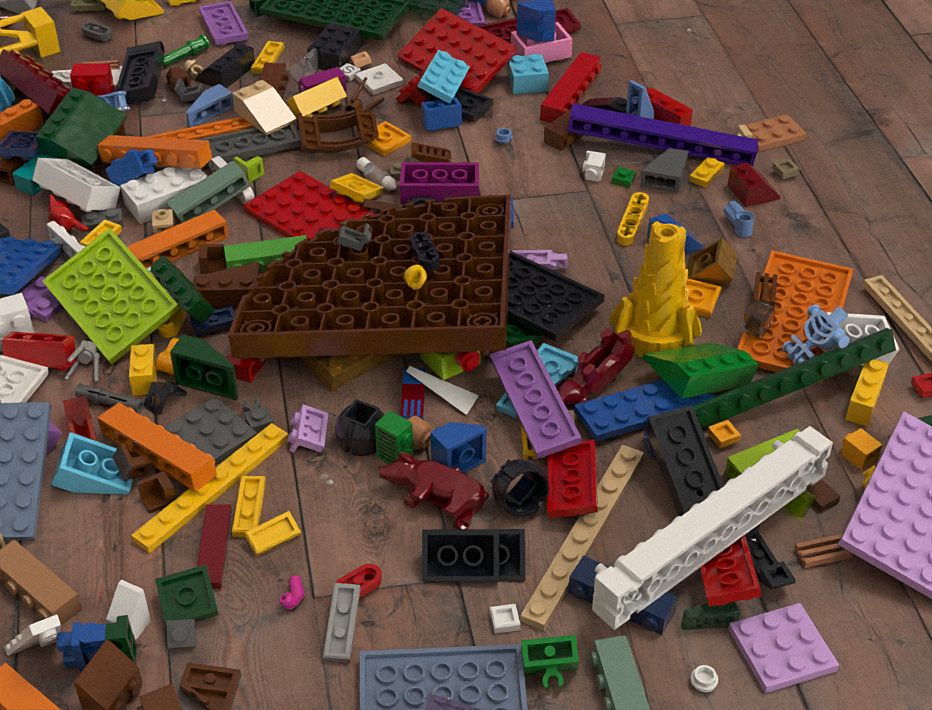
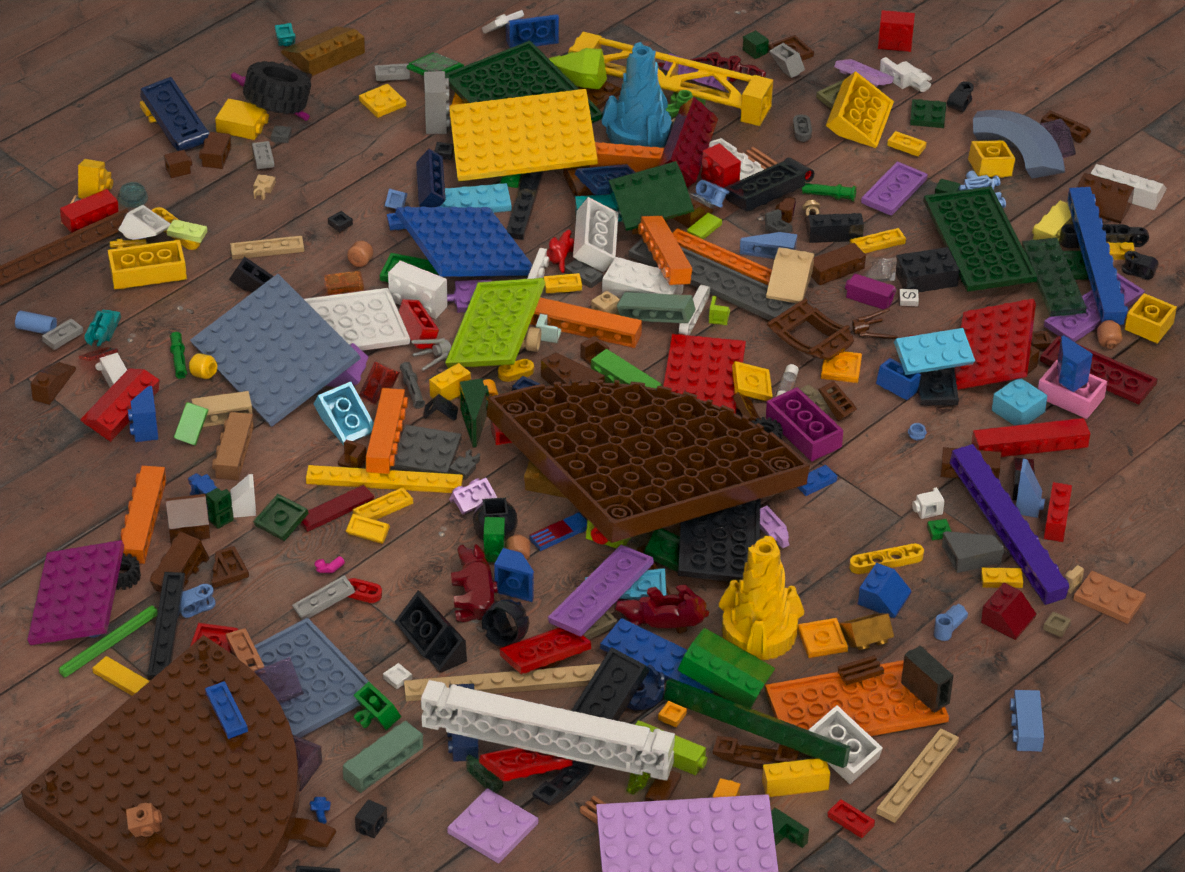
camera: 55 degrees right, 0 degrees up
(40, 633) = (188, 464): white wing -> none
(130, 464) = (362, 428): reddish brown panel -> none
(132, 166) = (635, 249): blue brick -> none
(137, 126) = (705, 226): none -> lime tile
(181, 633) = (253, 531): dark grey plate -> none
(182, 289) = (530, 352): dark green brick -> none
(317, 98) = (841, 299): yellow brick -> none
(353, 239) = (657, 404): dark grey bracket -> none
(360, 59) = (932, 294): light nougat tile -> none
(380, 79) = (919, 319): white plate -> none
(415, 276) = (632, 454): yellow tile -> none
(424, 251) = (685, 442): black beam -> none
(453, 394) = (579, 548): white sticker -> none
(704, 678) = (429, 794): white plate -> none
(758, 318) = (812, 677): clear smoke brick -> none
(818, 404) = (751, 756): none -> reddish brown slope
(819, 252) = (927, 678): none -> pearl dark grey brick
(829, 323) = (813, 713): light blue piece -> none
(886, 231) = (1027, 720): none -> medium blue brick

